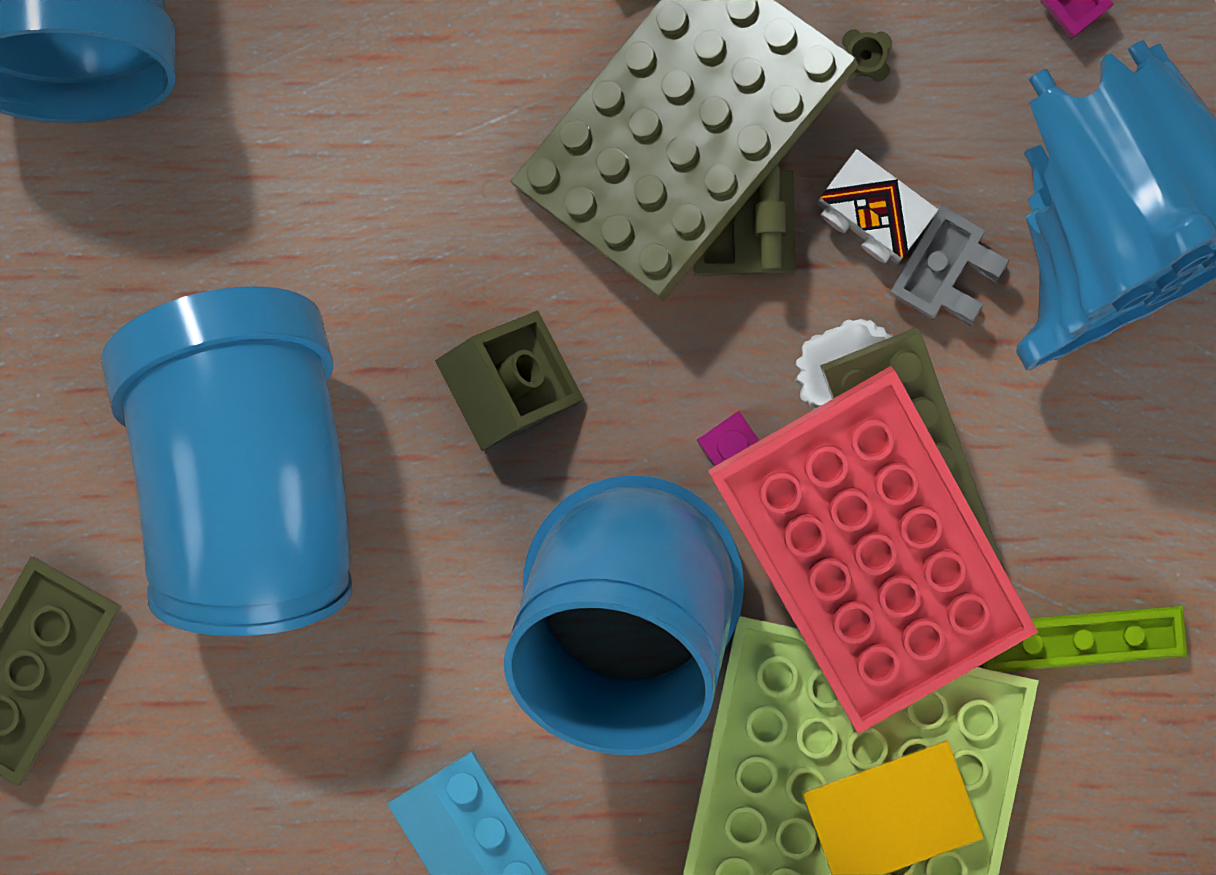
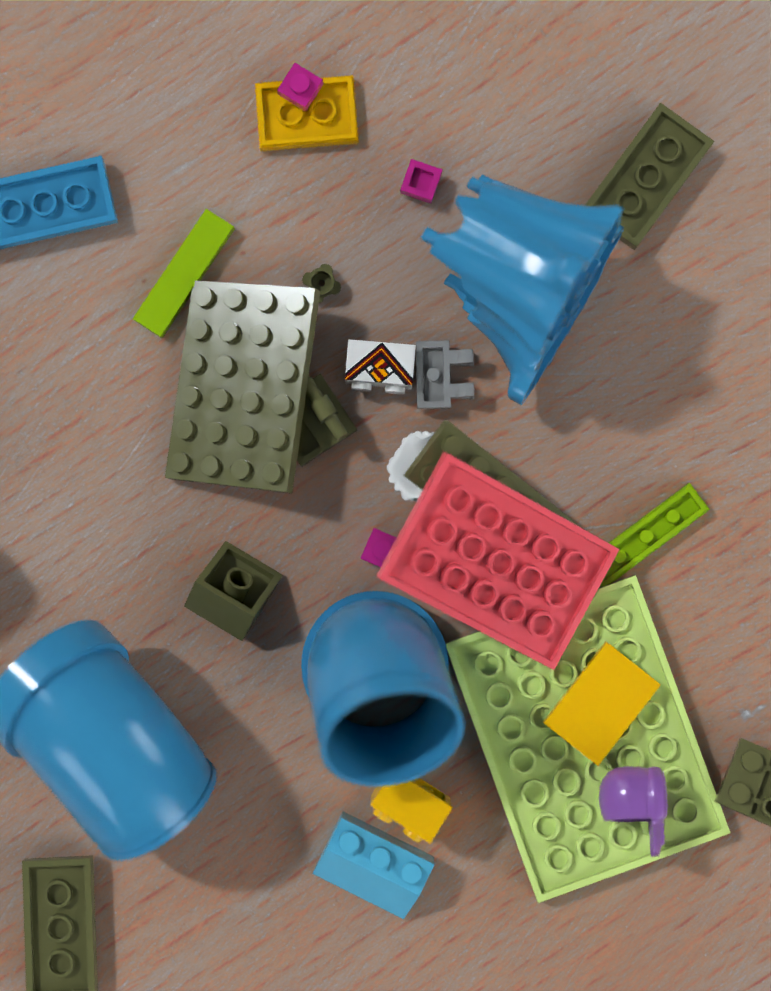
camera: 30 degrees left, 0 degrees up
(571, 791) = (414, 806): none -> yellow brick

